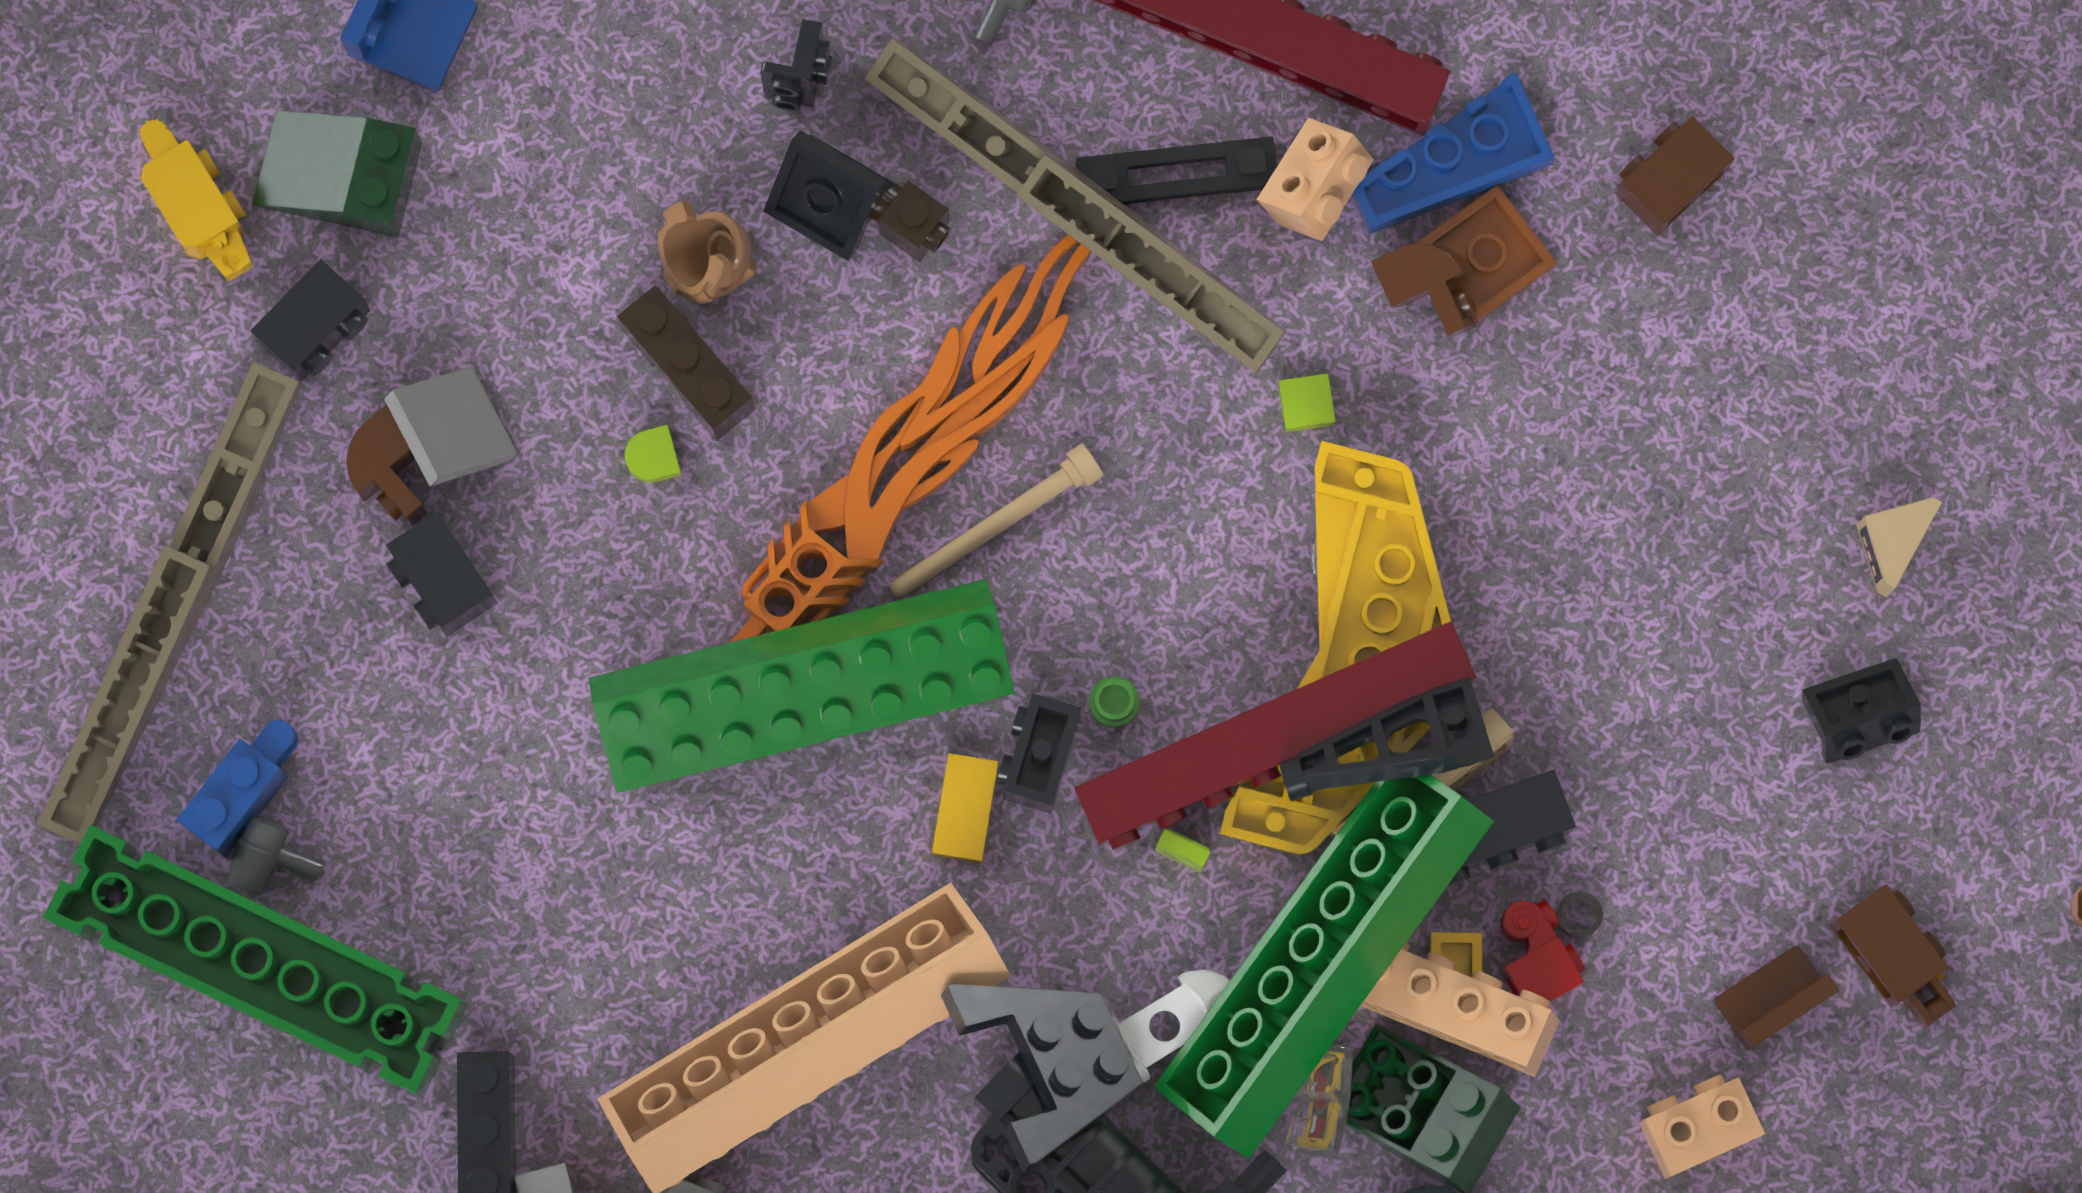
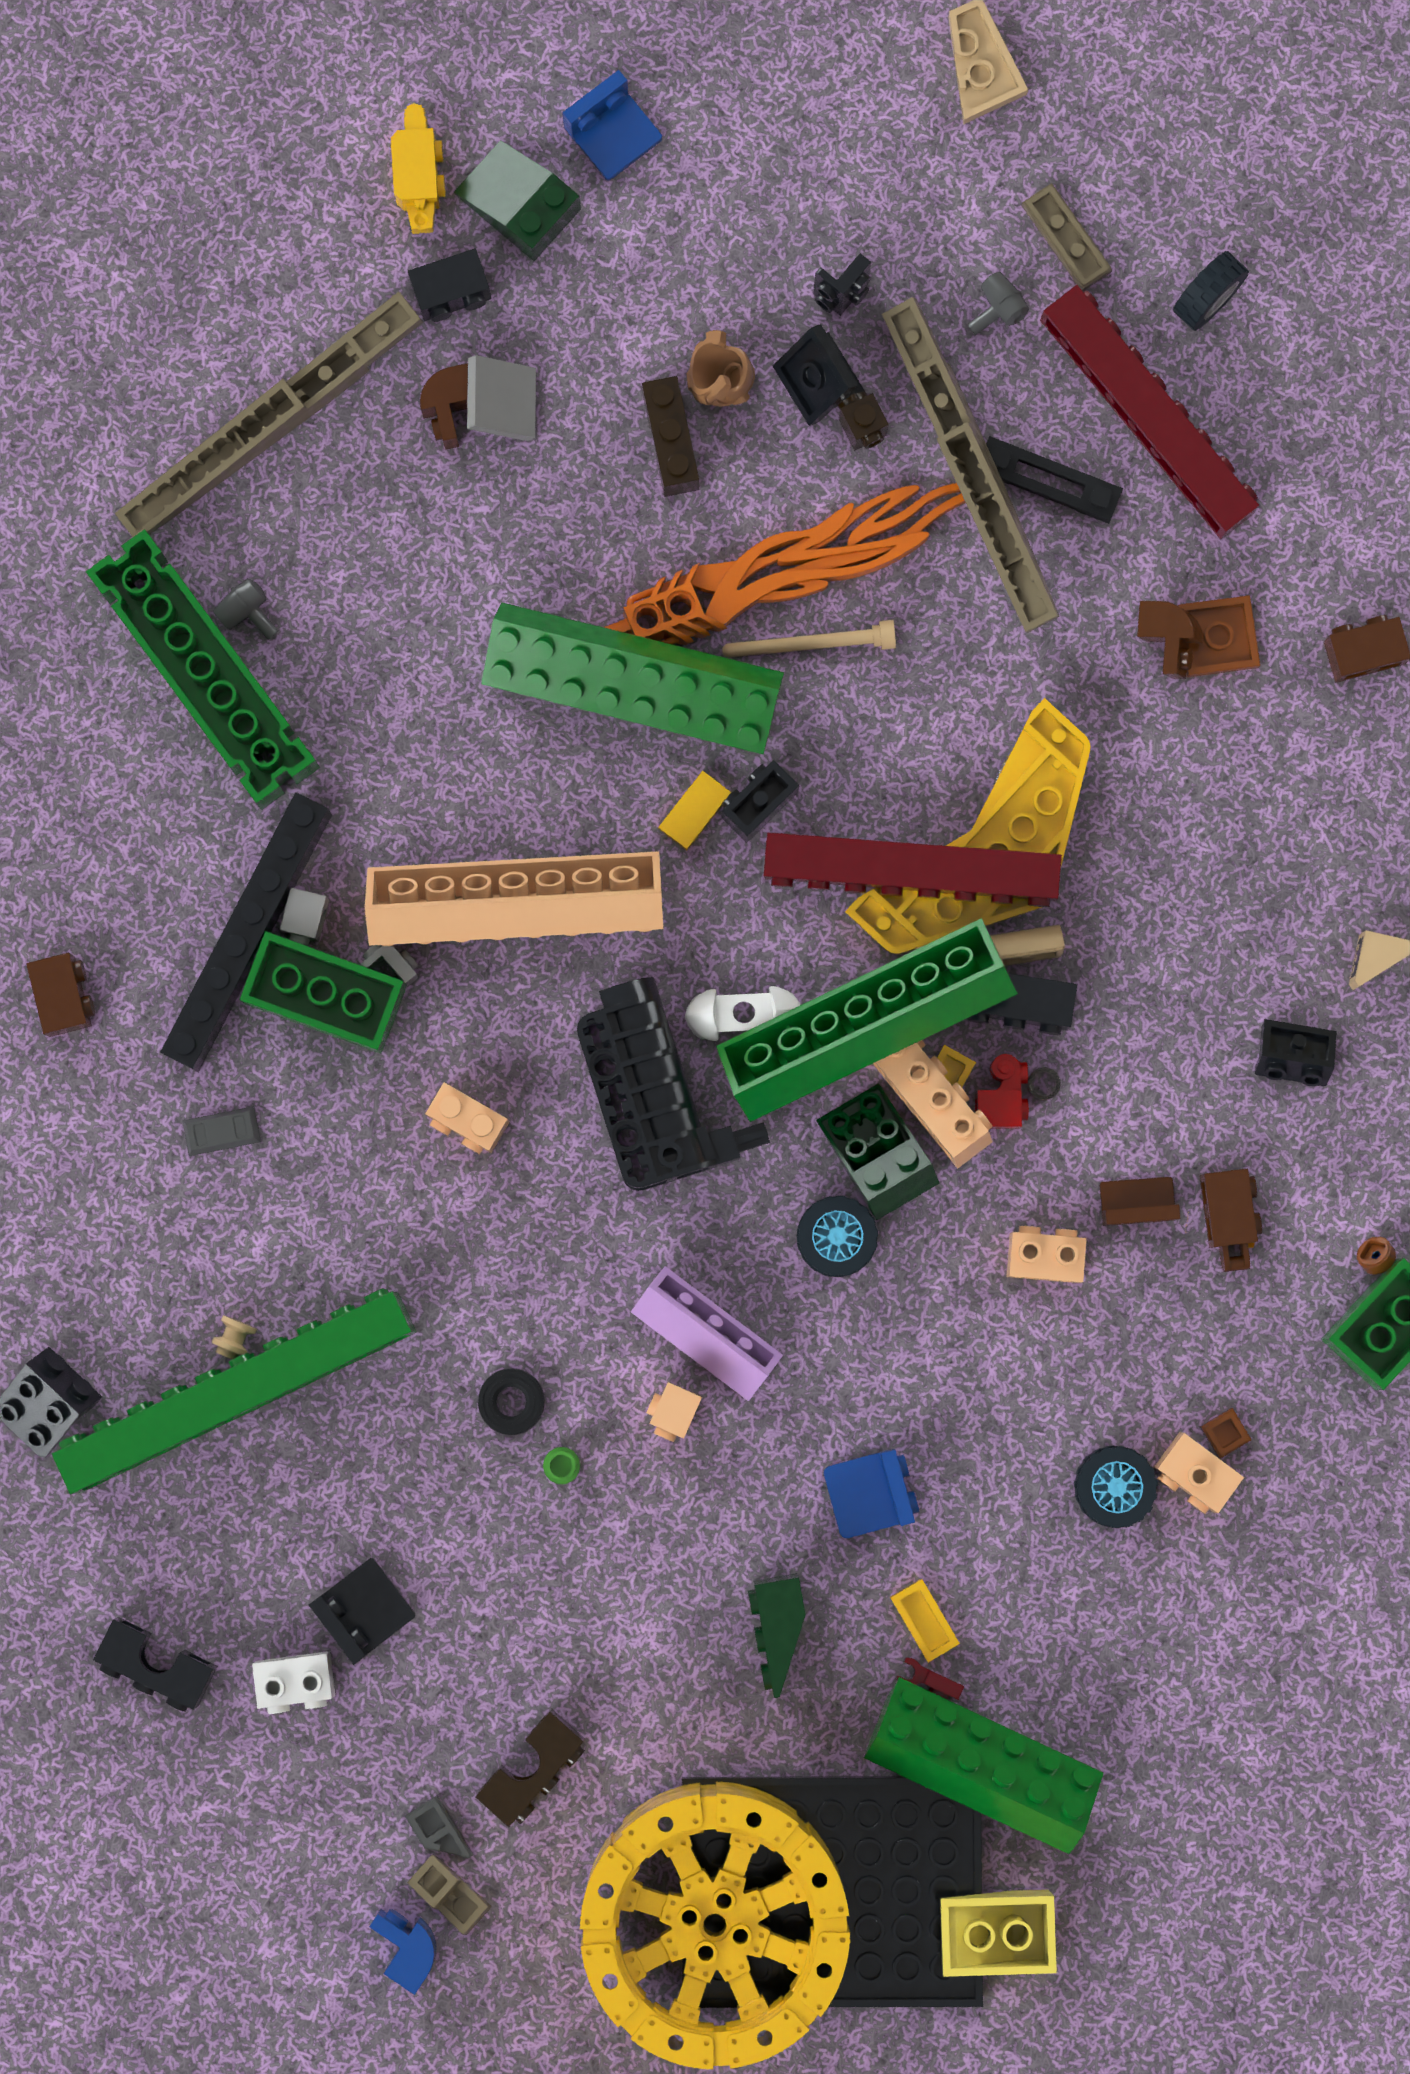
camera: 30 degrees right, 5 degrees up
(240, 787) = (250, 556): blue brick -> none
(440, 574) = (445, 489): black brick -> none
(652, 455) = (619, 484): lime tile -> none
(1068, 1050) = (673, 995): wing -> none
(1114, 702) = (824, 794): bright green plate -> none
(1183, 850) = (816, 909): lime tile -> none
(1306, 403) = (1050, 670): lime tile -> none
(1315, 179) = (1137, 529): light nougat brick -> none
(1323, 1106) = (816, 1114): clear slope -> none
(1457, 743) = (1024, 927): black plate -> none
(1470, 153) = (1240, 566): blue wing -> none

